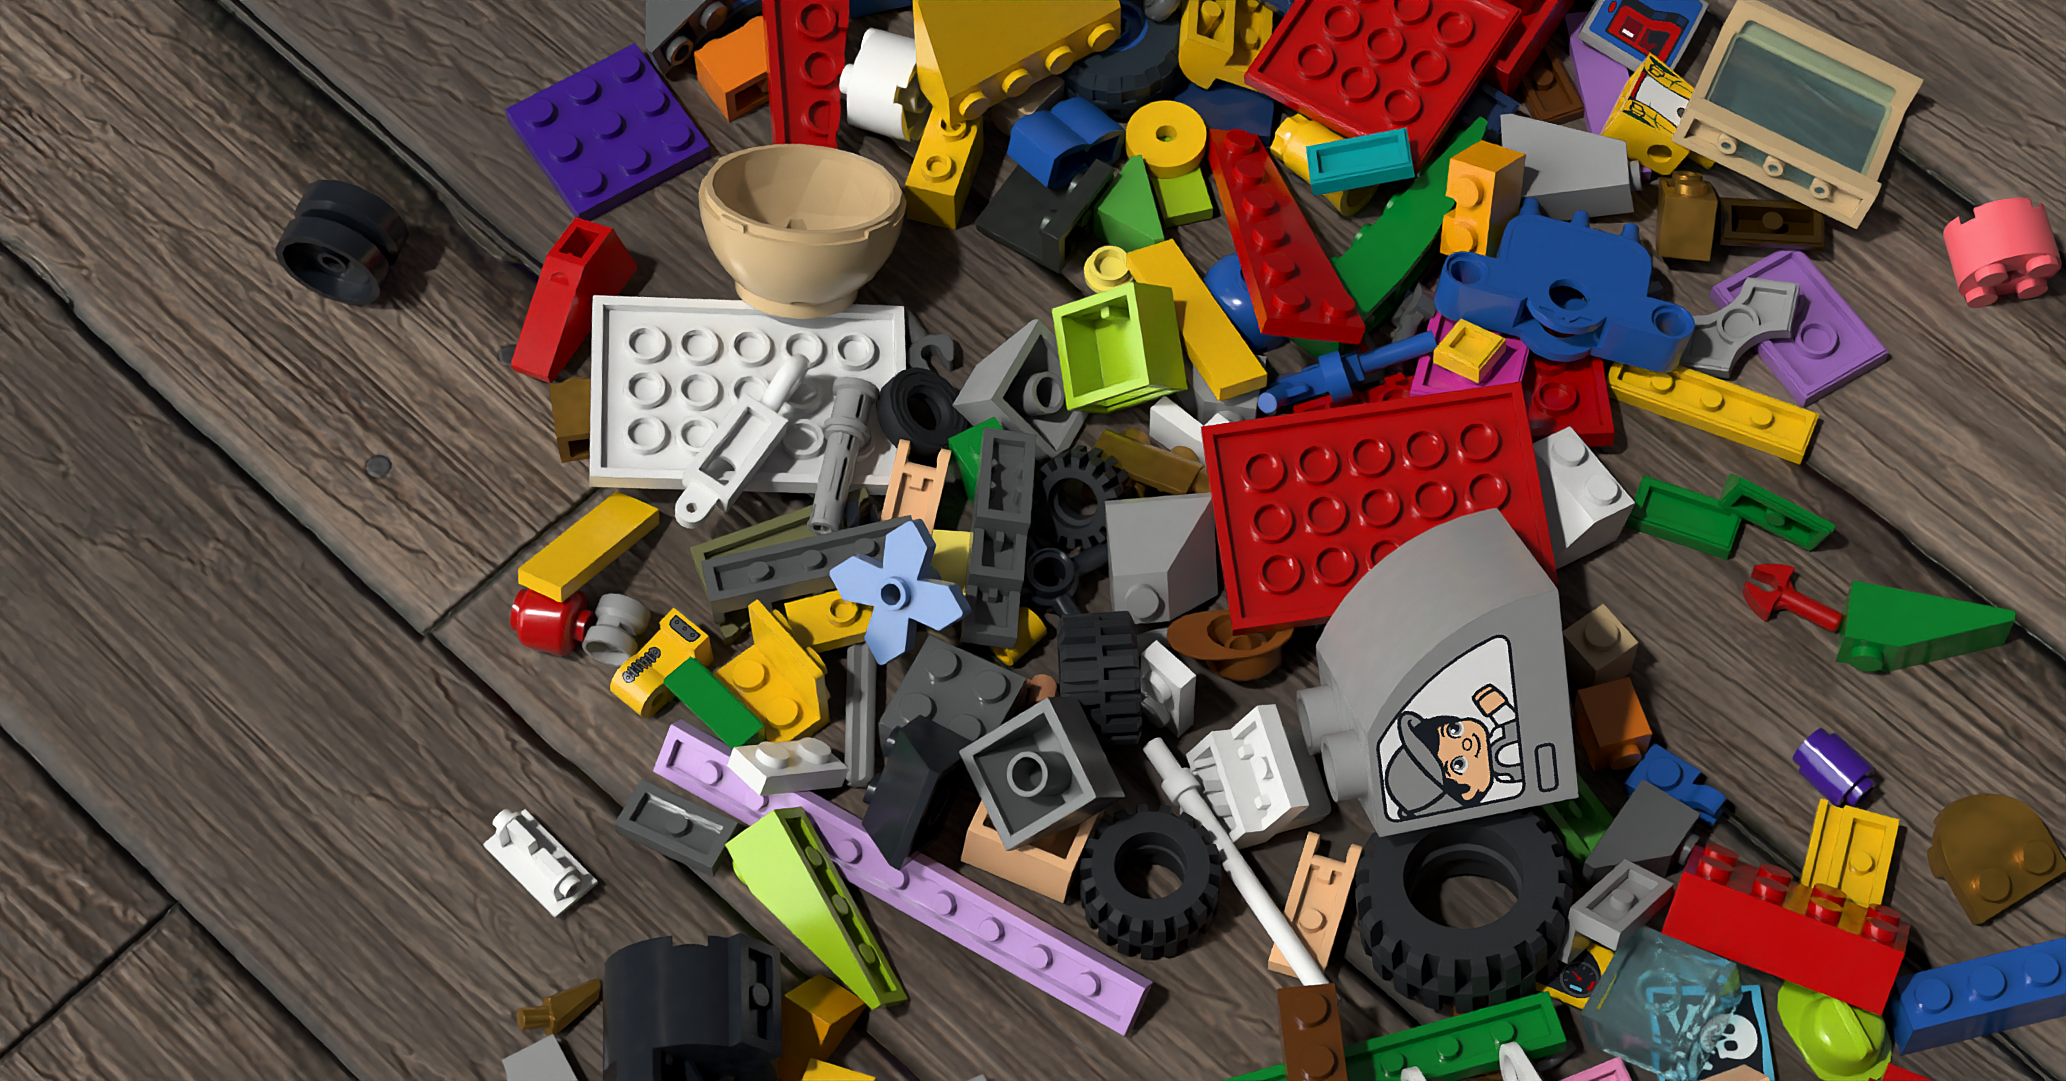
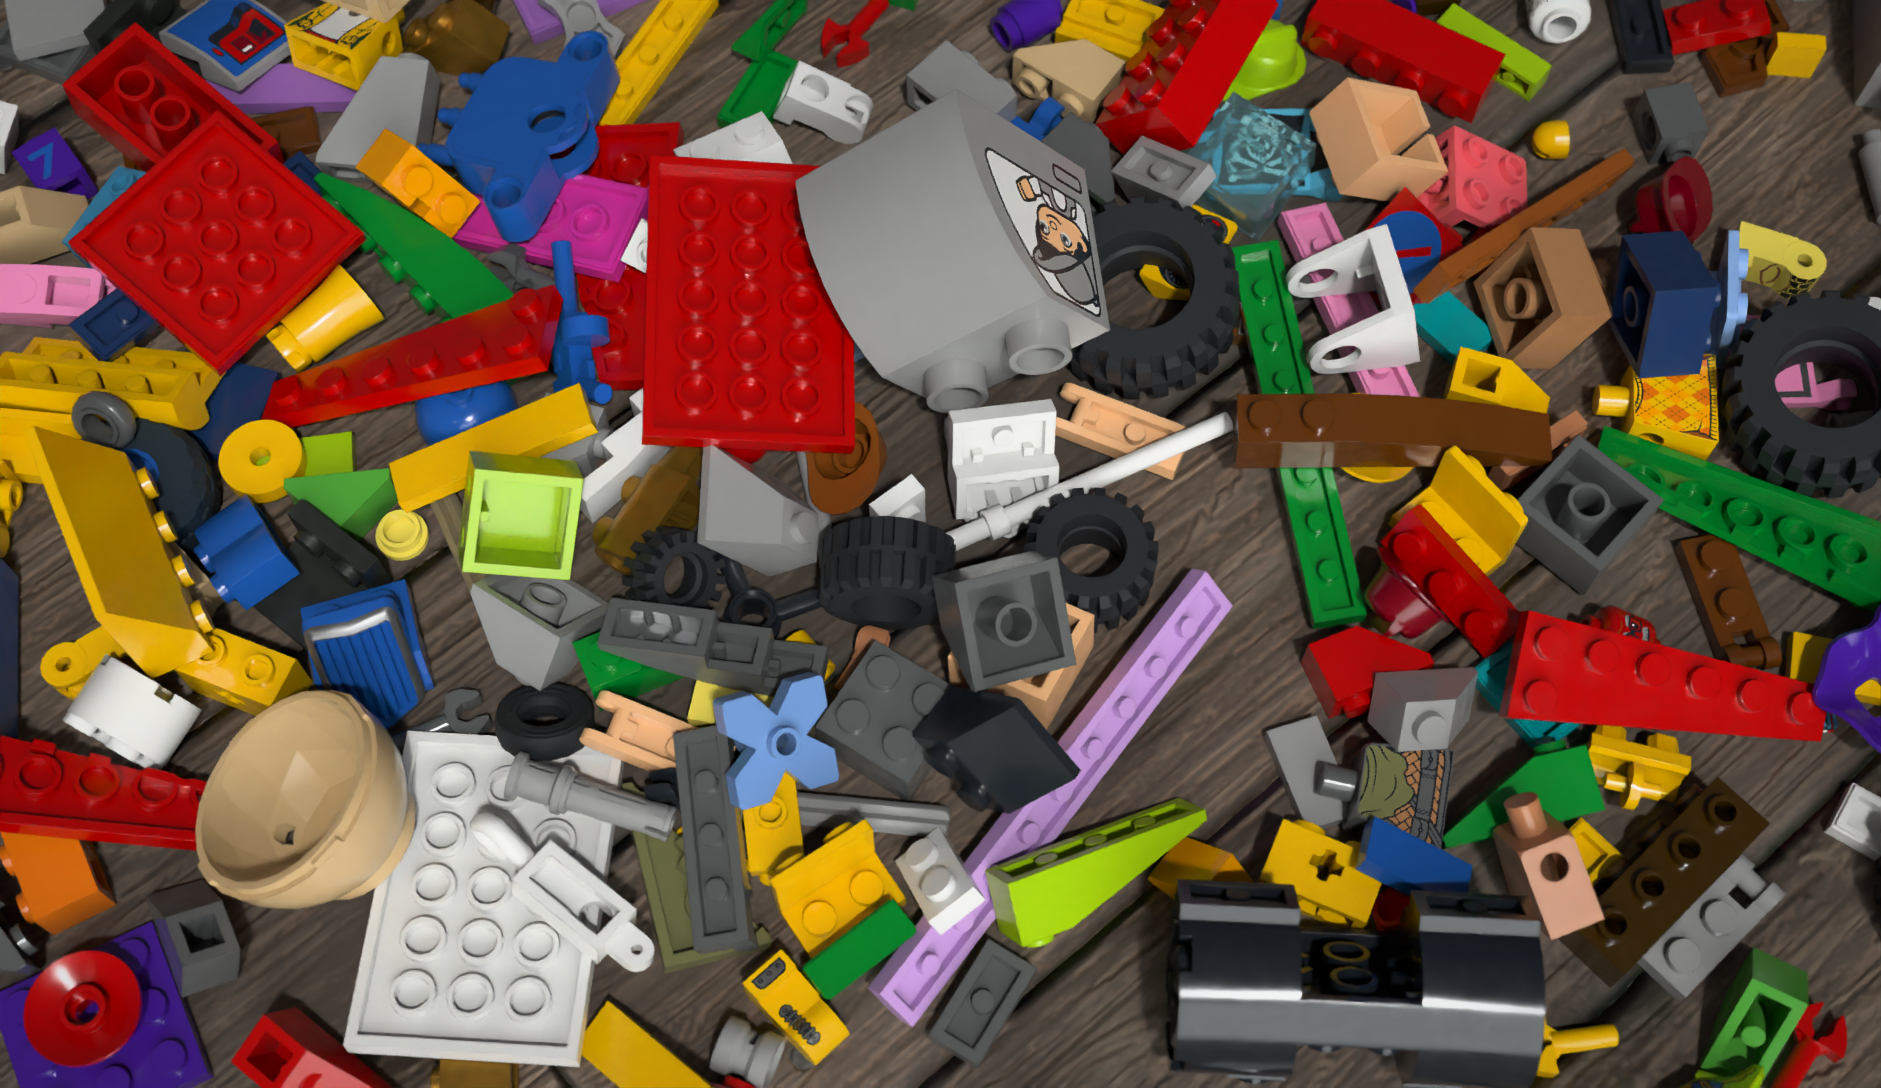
camera: 85 degrees left, 5 degrees up
(612, 88) = (63, 992): none -> red dish
(677, 175) = (195, 936): none -> dark grey slope
(976, 258) = (370, 650): none -> blue piece
(1360, 161) = (351, 275): teal tile -> none
(1469, 350) = (578, 217): yellow tile -> none
(1670, 572) = (824, 104): none -> white leg
(1707, 706) = (955, 69): none -> light grey brick
(1765, 817) = (1071, 73): none -> tan slope

